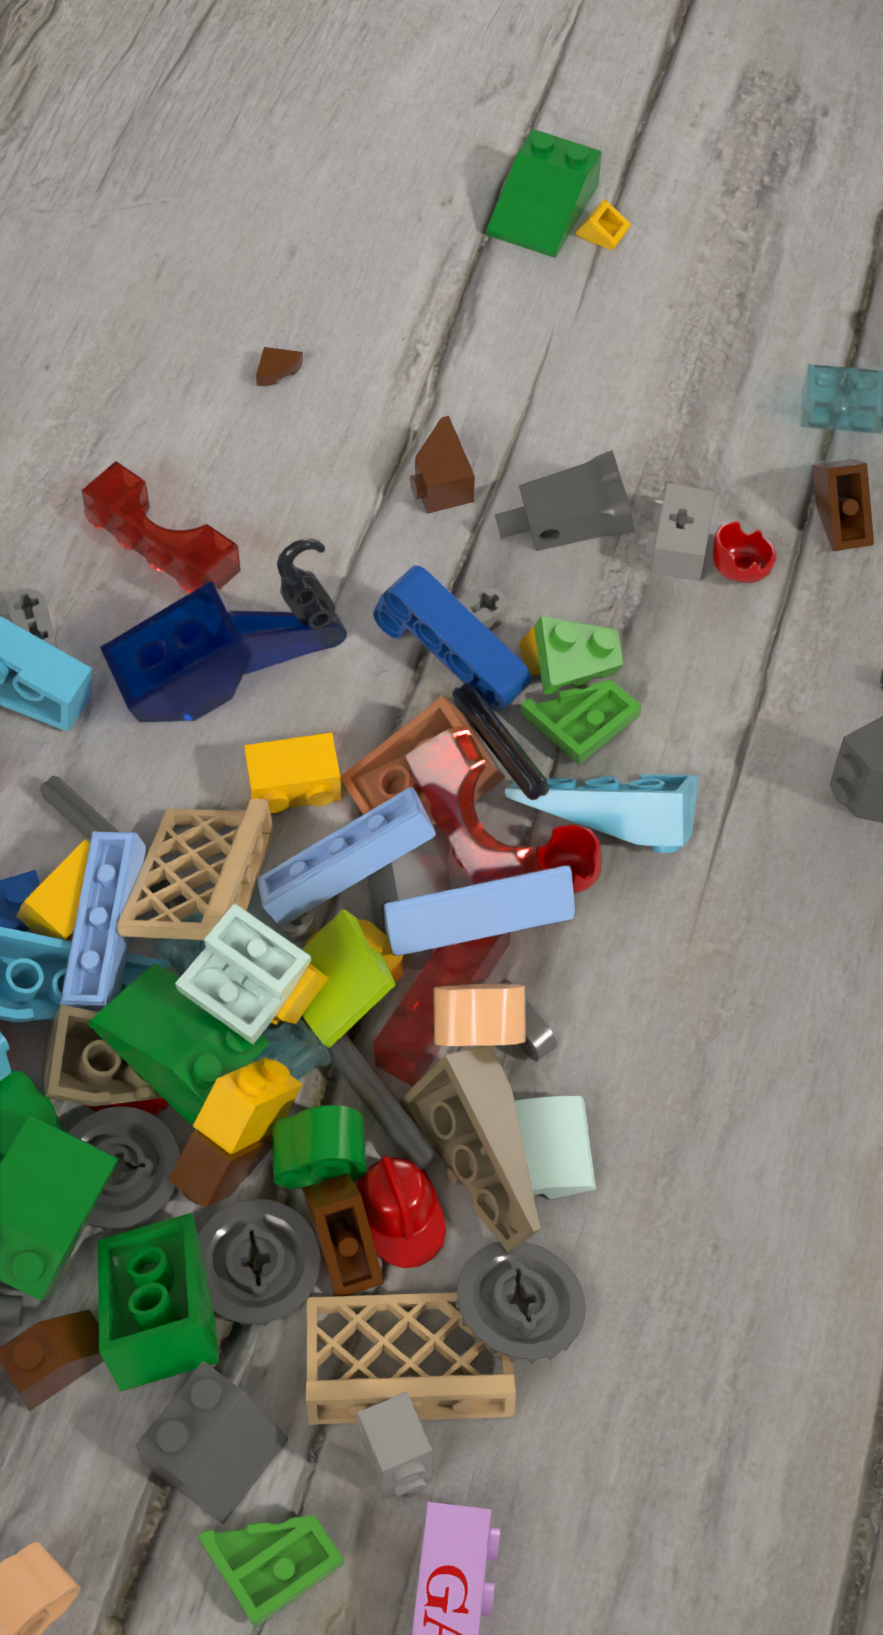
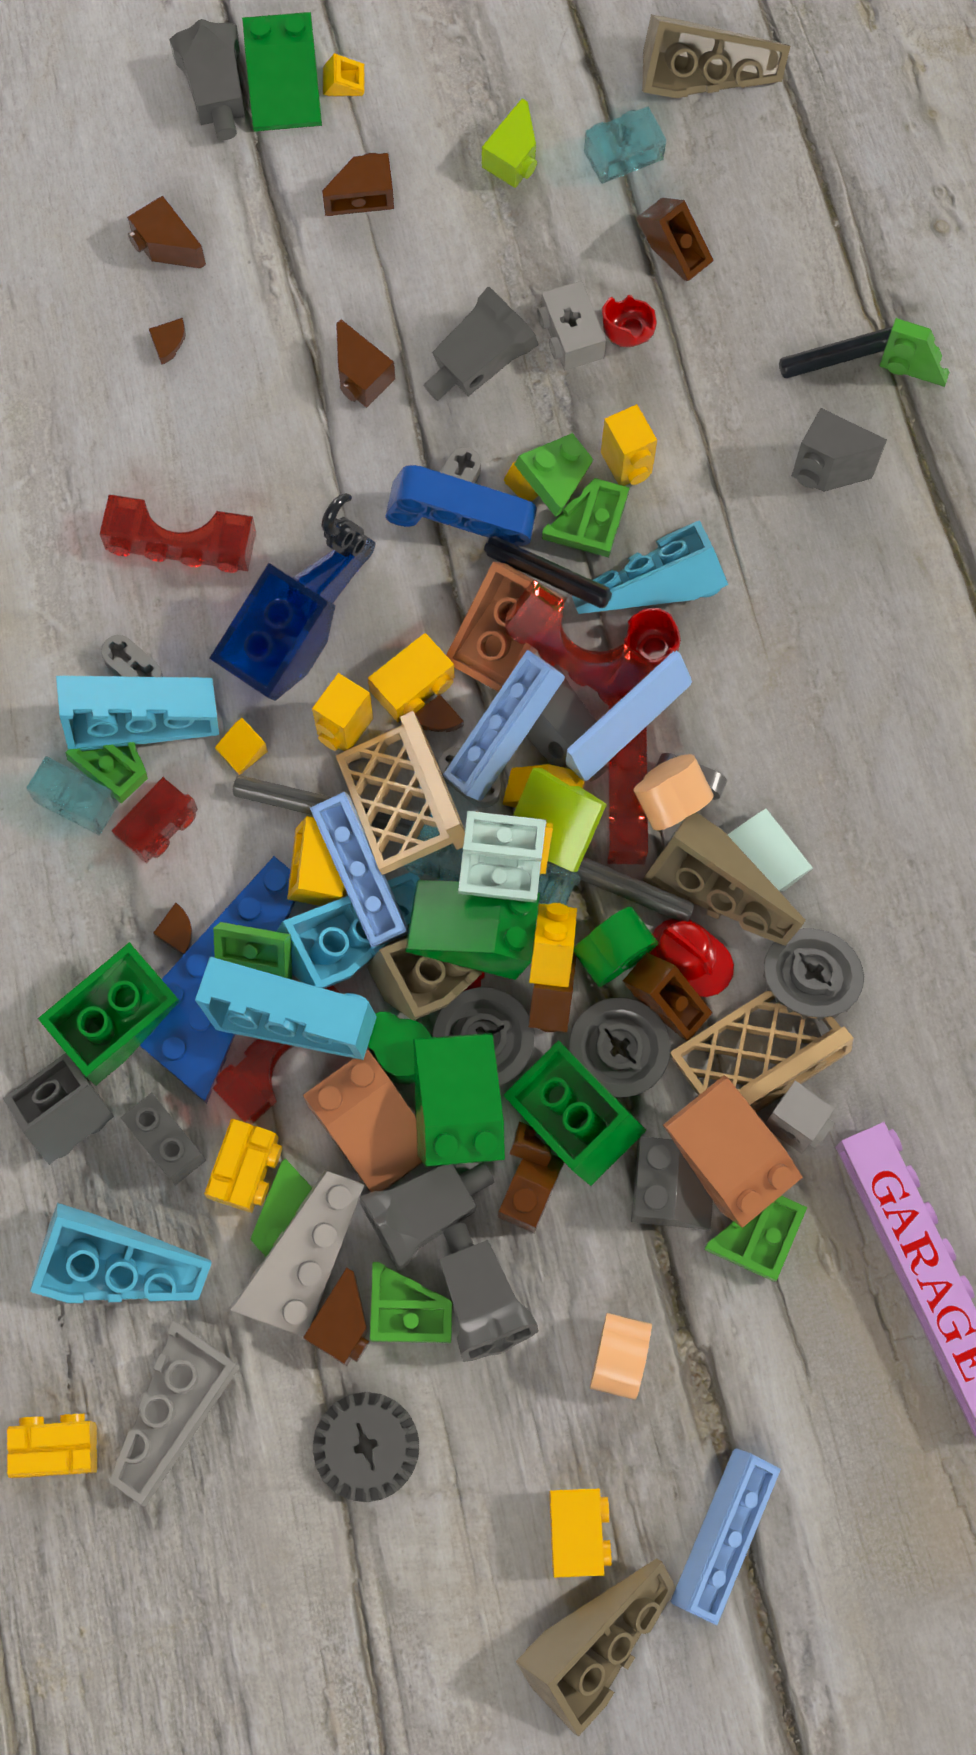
camera: 30 degrees left, 15 degrees up
(80, 752) = (241, 746): none -> yellow slope
(81, 1307) = (530, 1147): none -> reddish brown tile
(193, 765) = (342, 713): none -> yellow brick
(292, 1438) = (732, 1152): none -> nougat slope
(295, 825) = (439, 716): none -> reddish brown tile
(334, 276) = (164, 236): none -> reddish brown slope
(477, 166) = (209, 61): none -> dark grey piece
(552, 319) = (360, 186): none -> reddish brown slope
(663, 662) = (628, 446): none -> yellow brick
(726, 350) = (512, 147): none -> lime slope

